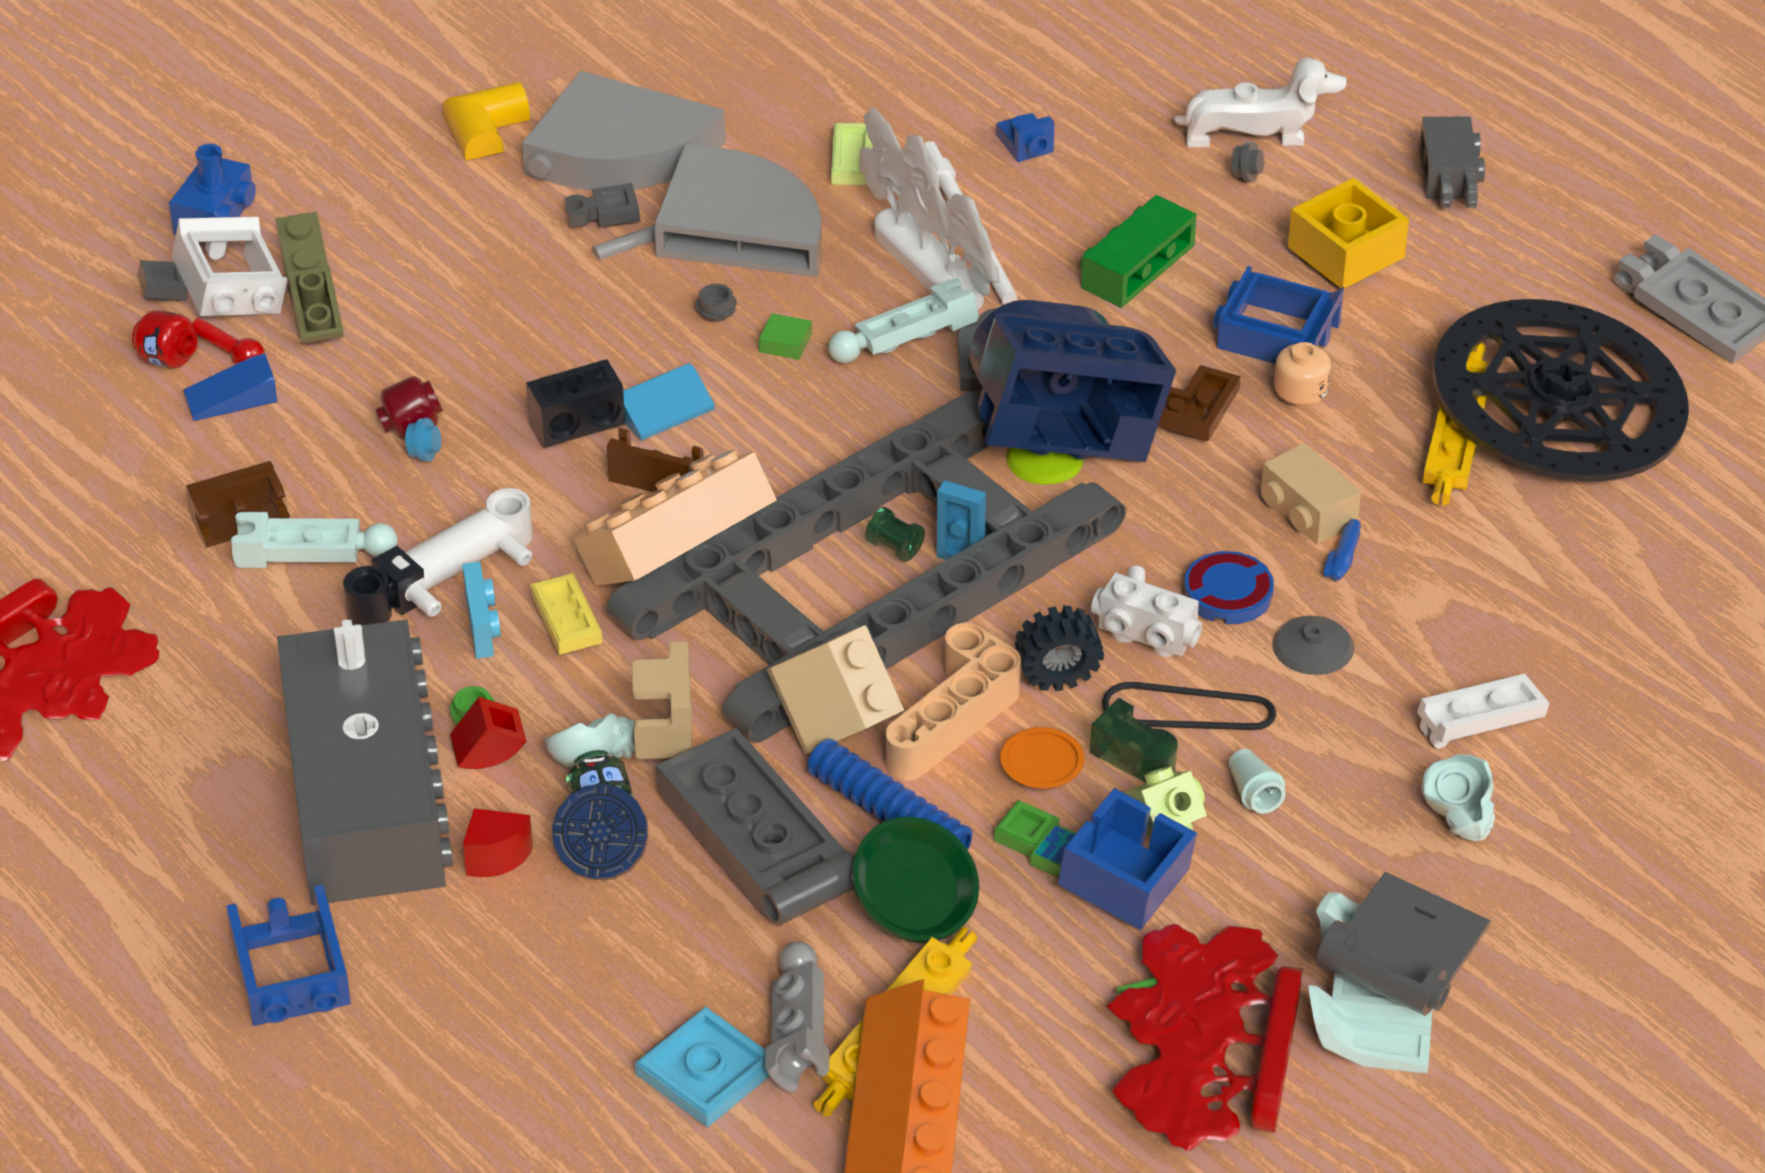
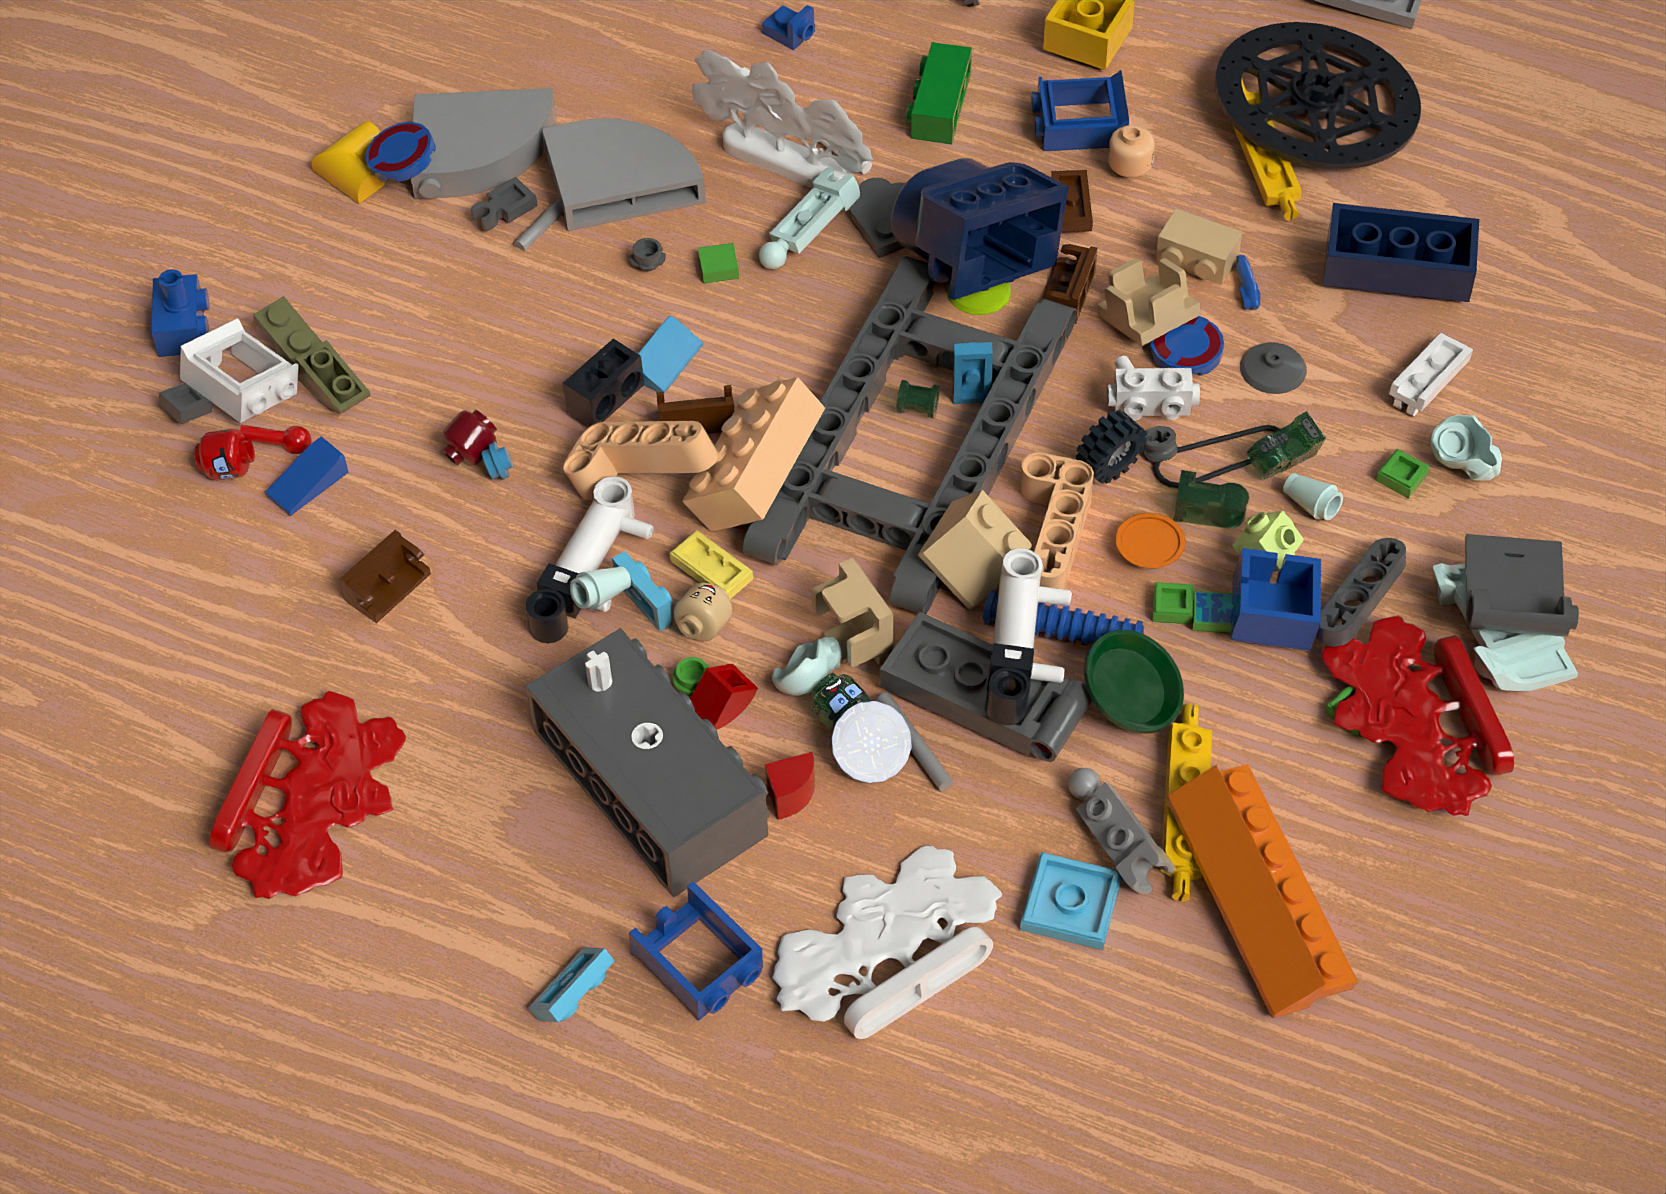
camera: 25 degrees left, 10 degrees up
(128, 947) = (578, 977): none -> medium azure plate
(304, 540) = (461, 585): light aqua plate -> none
(429, 583) = (597, 587): none -> light aqua cone
(497, 1011) = (885, 924): none -> white plant
(524, 650) = (703, 609): none -> tan head
(525, 118) = (400, 151): none -> blue tile
(556, 471) = (637, 448): none -> light nougat beam
(655, 856) = (921, 750): none -> light grey bar
(783, 803) = (1014, 636): none -> white piece
(847, 142) = (665, 88): yellowish green tile -> none
(1124, 670) = (1160, 444): none -> dark grey bush
(1149, 481) = (1072, 277): none -> reddish brown hinge
(1206, 529) = (1149, 305): none -> tan panel
(1235, 891) = (1353, 588): none -> dark grey beam
(1257, 722) = (1286, 447): none -> clear green leg
(1378, 798) = (1402, 473): none -> bright green tile
(1531, 574) = (1401, 252): none -> dark blue brick

